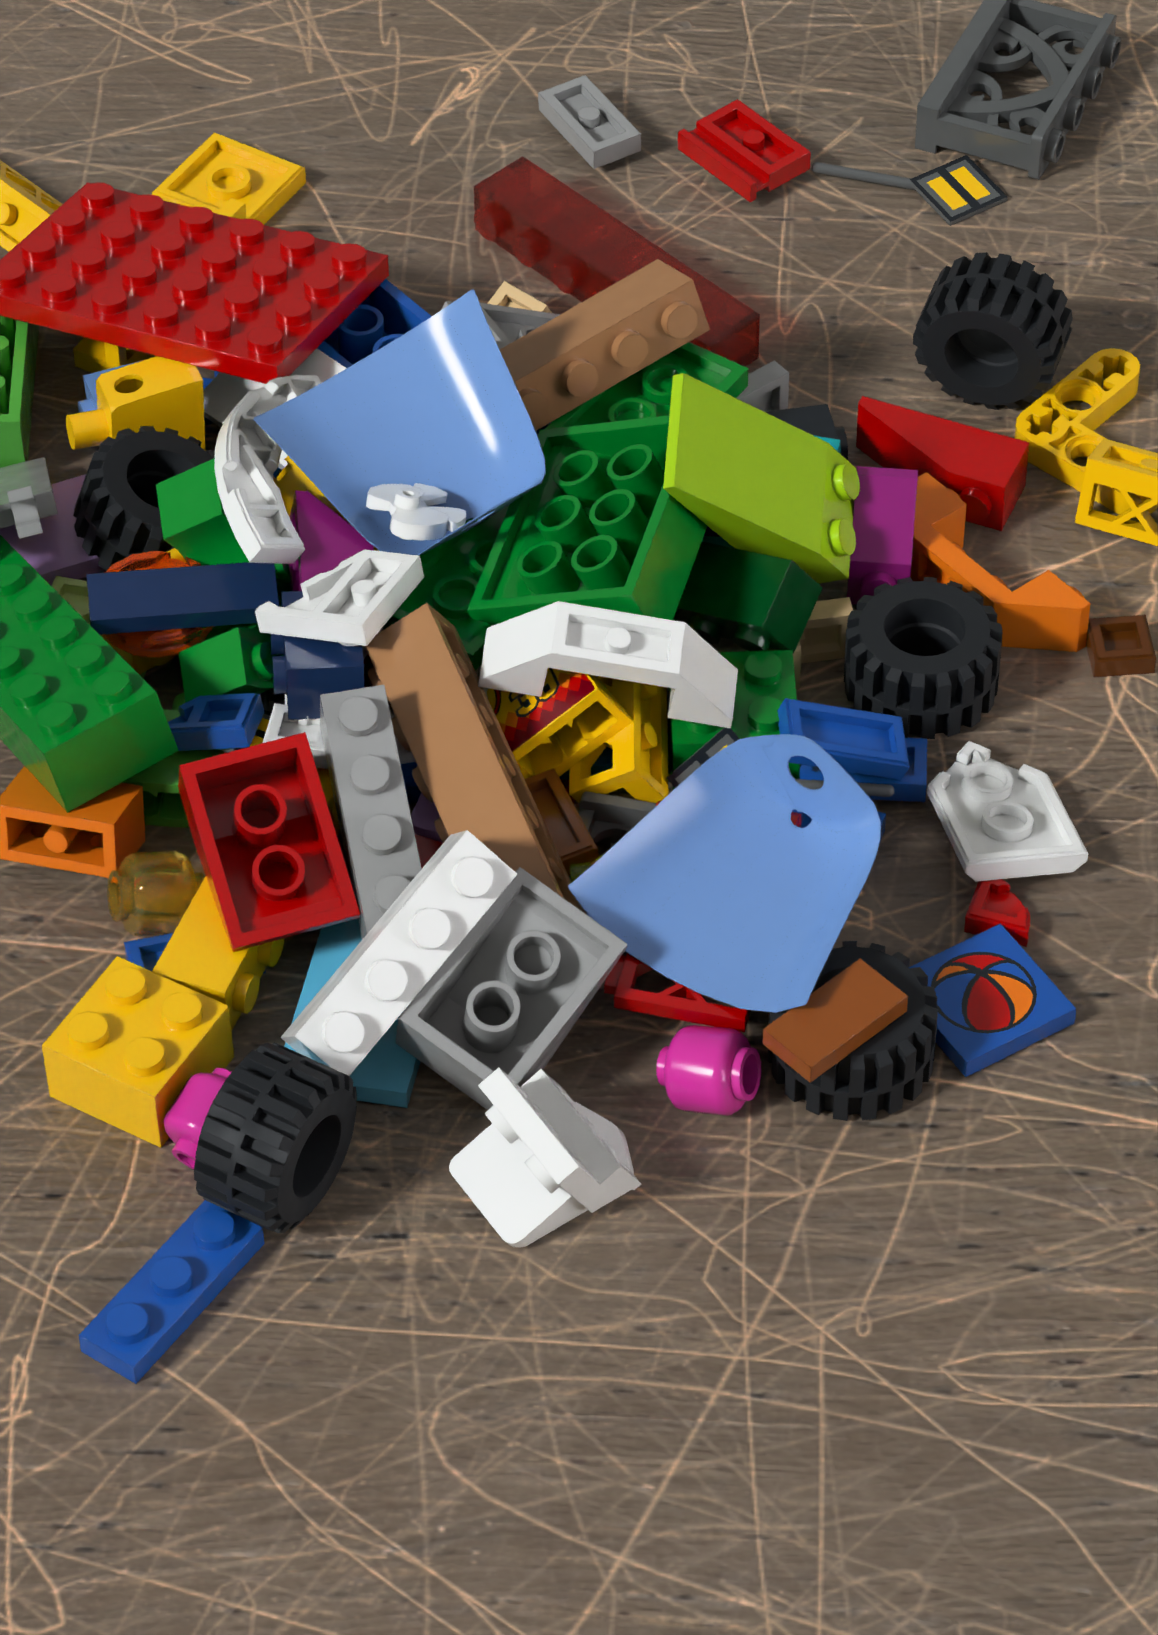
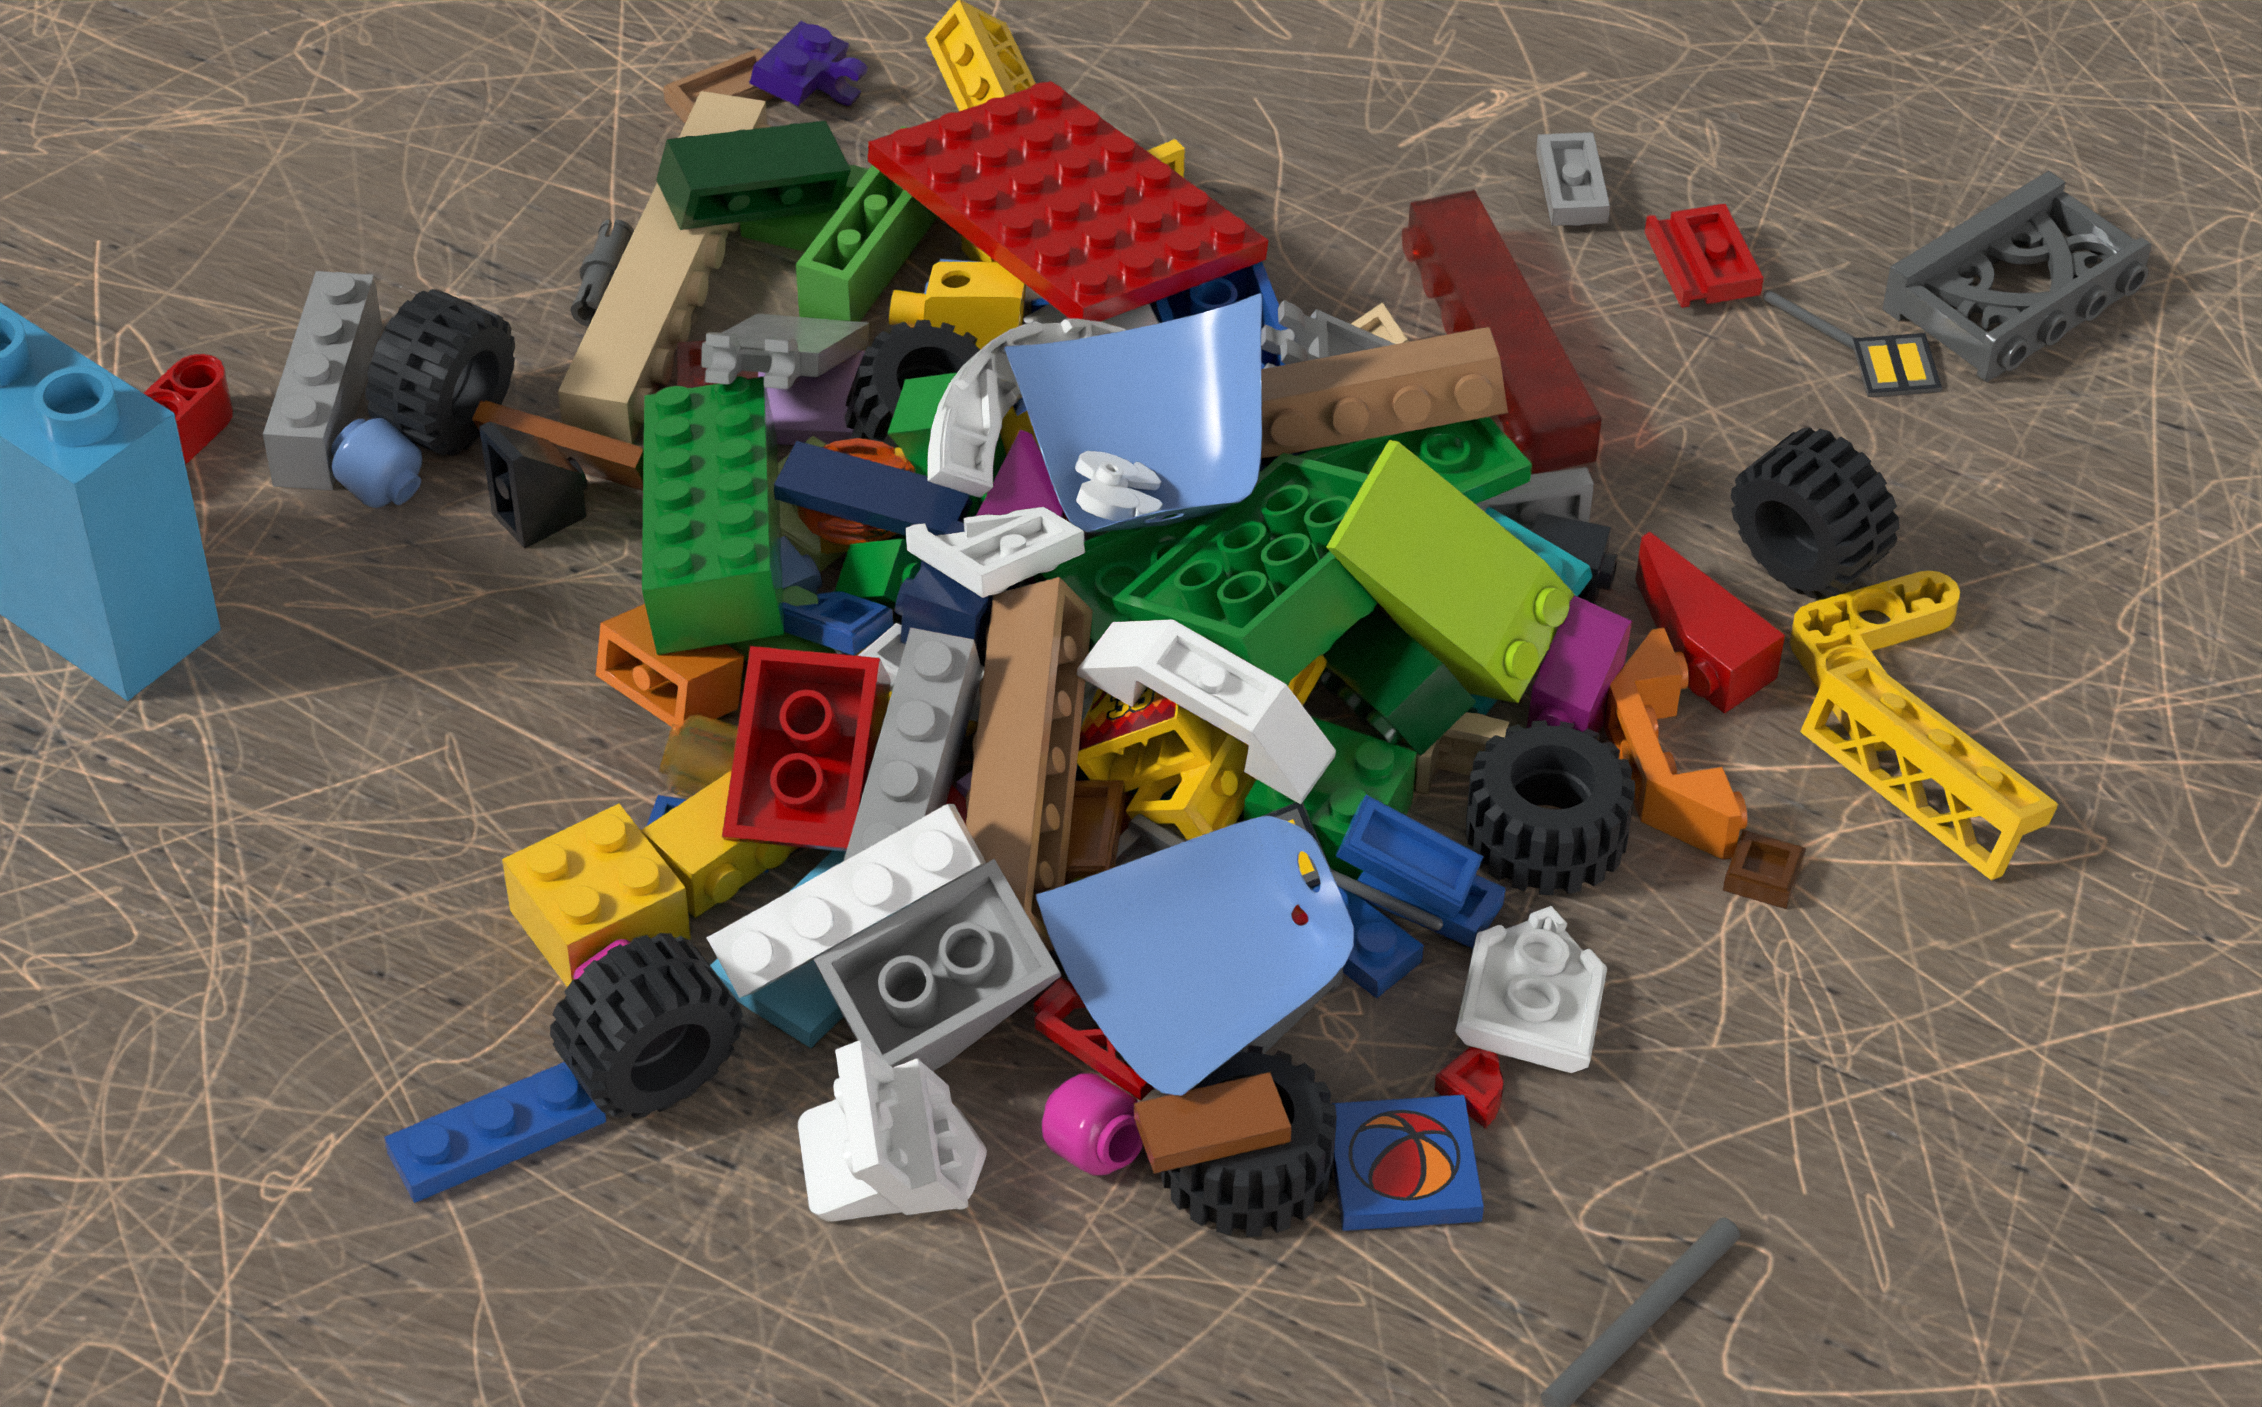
camera: 25 degrees right, 0 degrees up
(233, 170) = (1209, 123): yellow tile -> none

